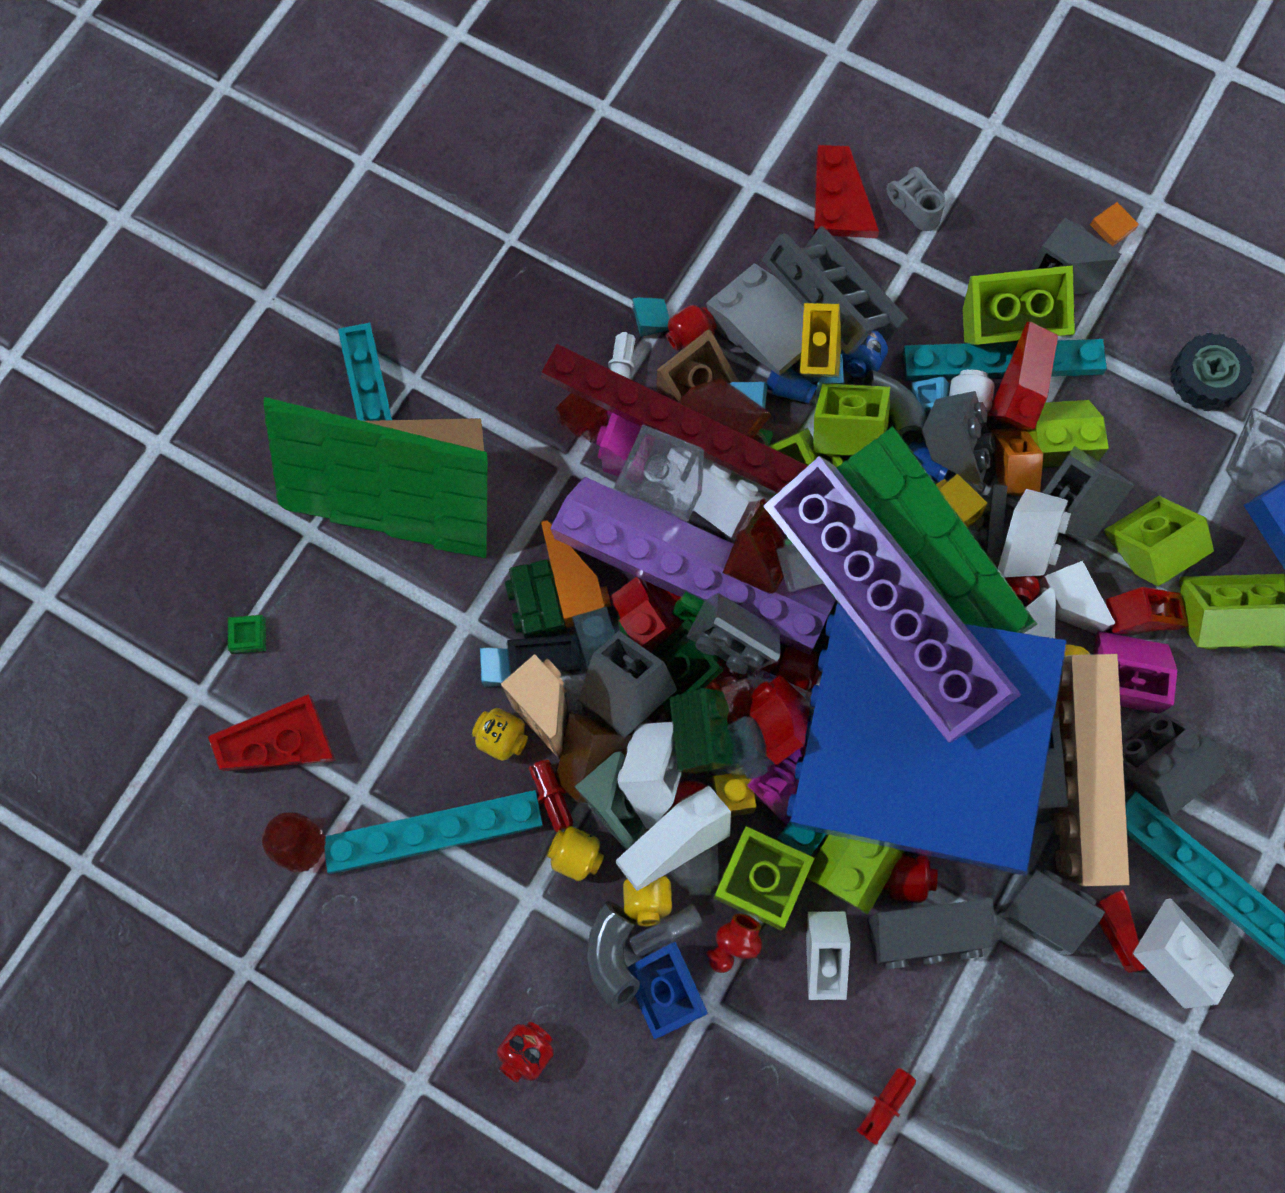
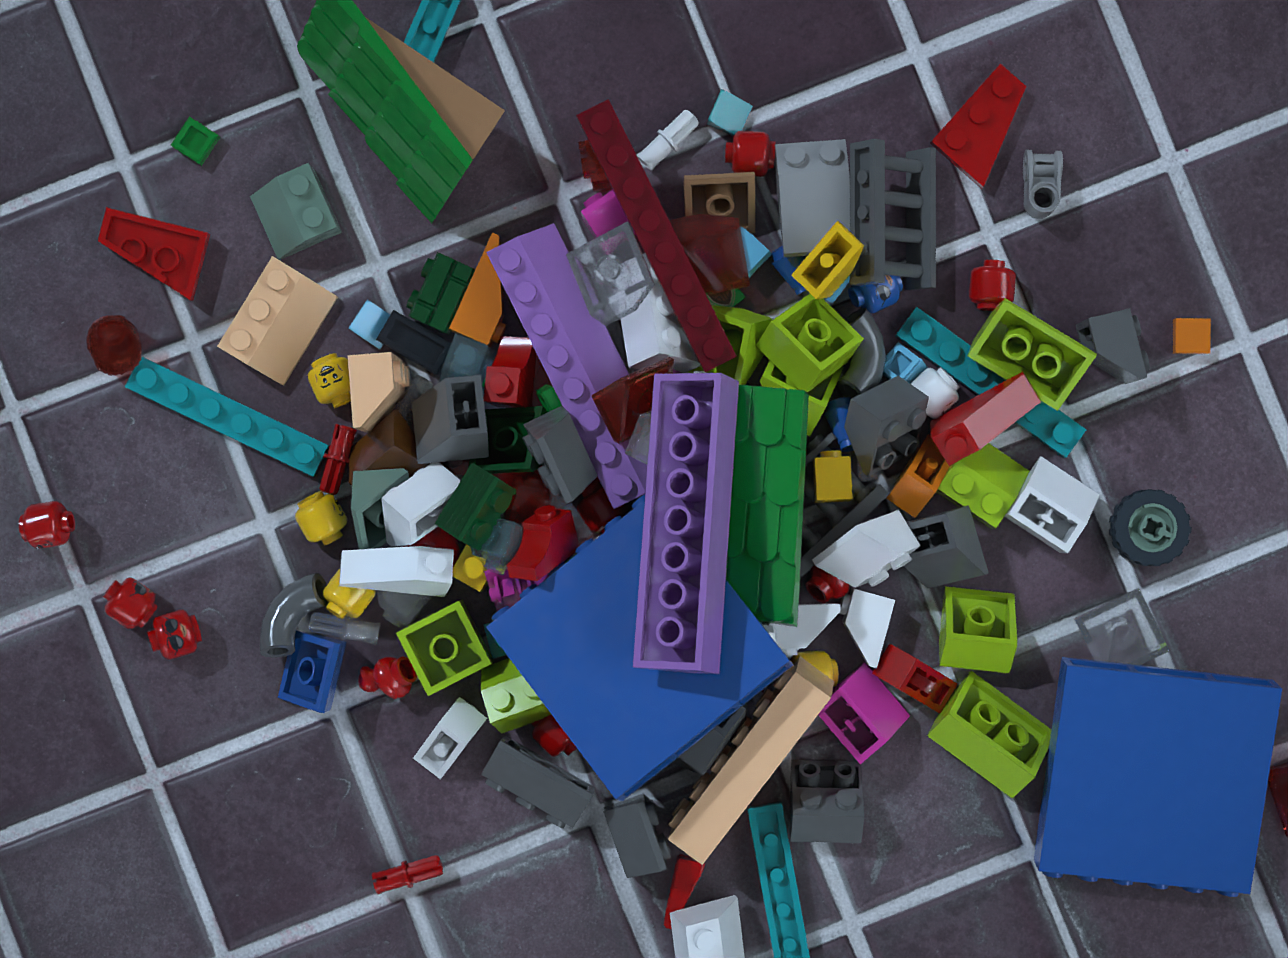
camera: 40 degrees right, 15 degrees up
(342, 1043) = (46, 524): none -> red head
(369, 625) = (295, 211): none -> sand green slope
(418, 721) = (277, 321): none -> light nougat slope
(465, 1055) = (130, 603): none -> red head
(945, 291) = (991, 285): none -> red head
(1134, 409) = (1053, 506): none -> white slope

